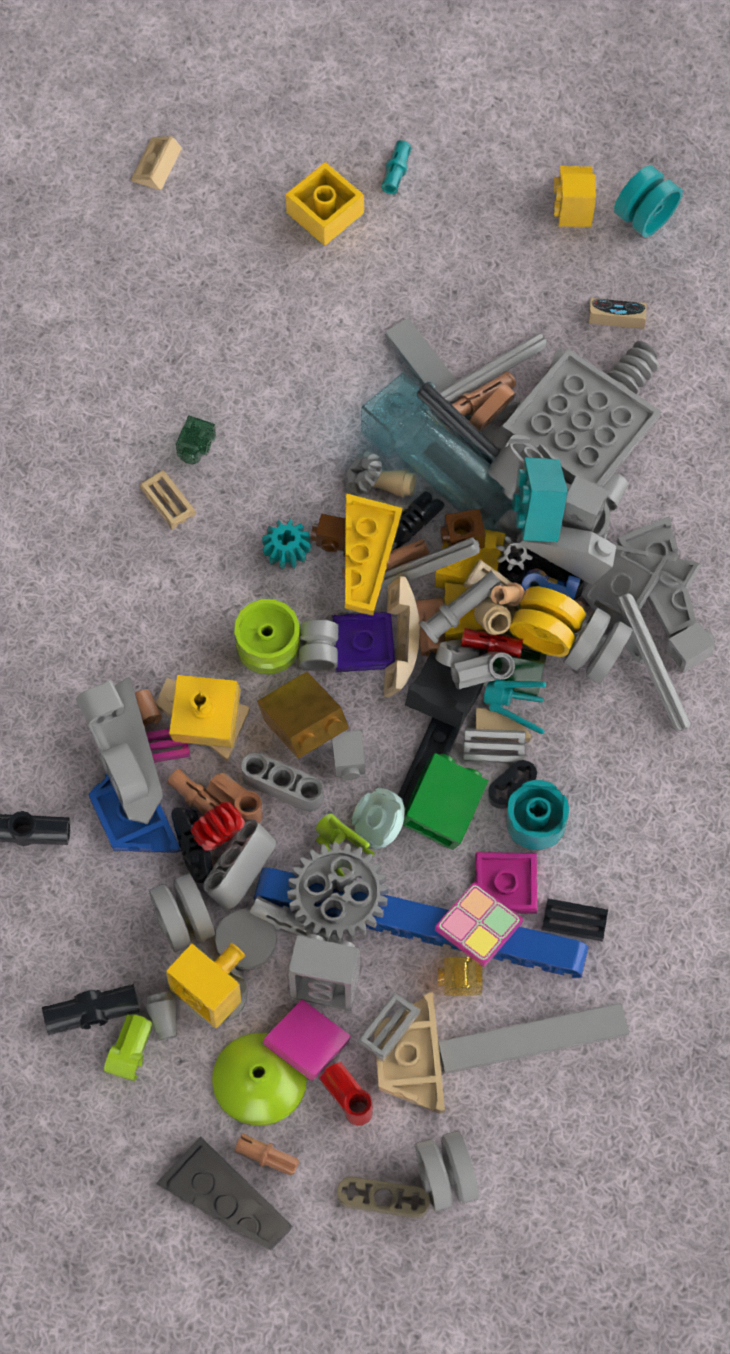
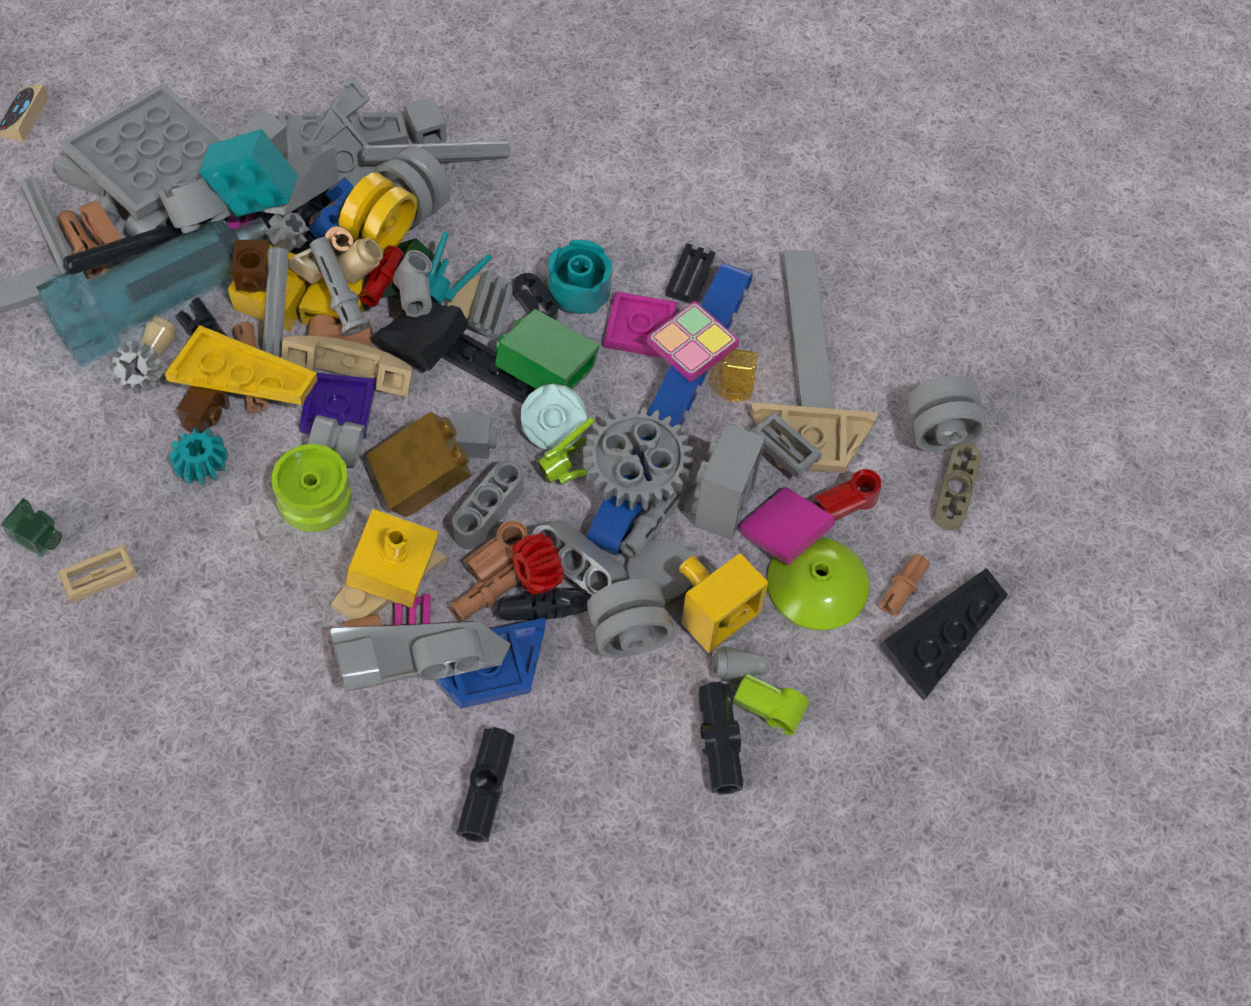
camera: 85 degrees left, 5 degrees down
(453, 652) = (384, 313): light grey beam -> none
(635, 366) = (93, 100): light grey piece -> none

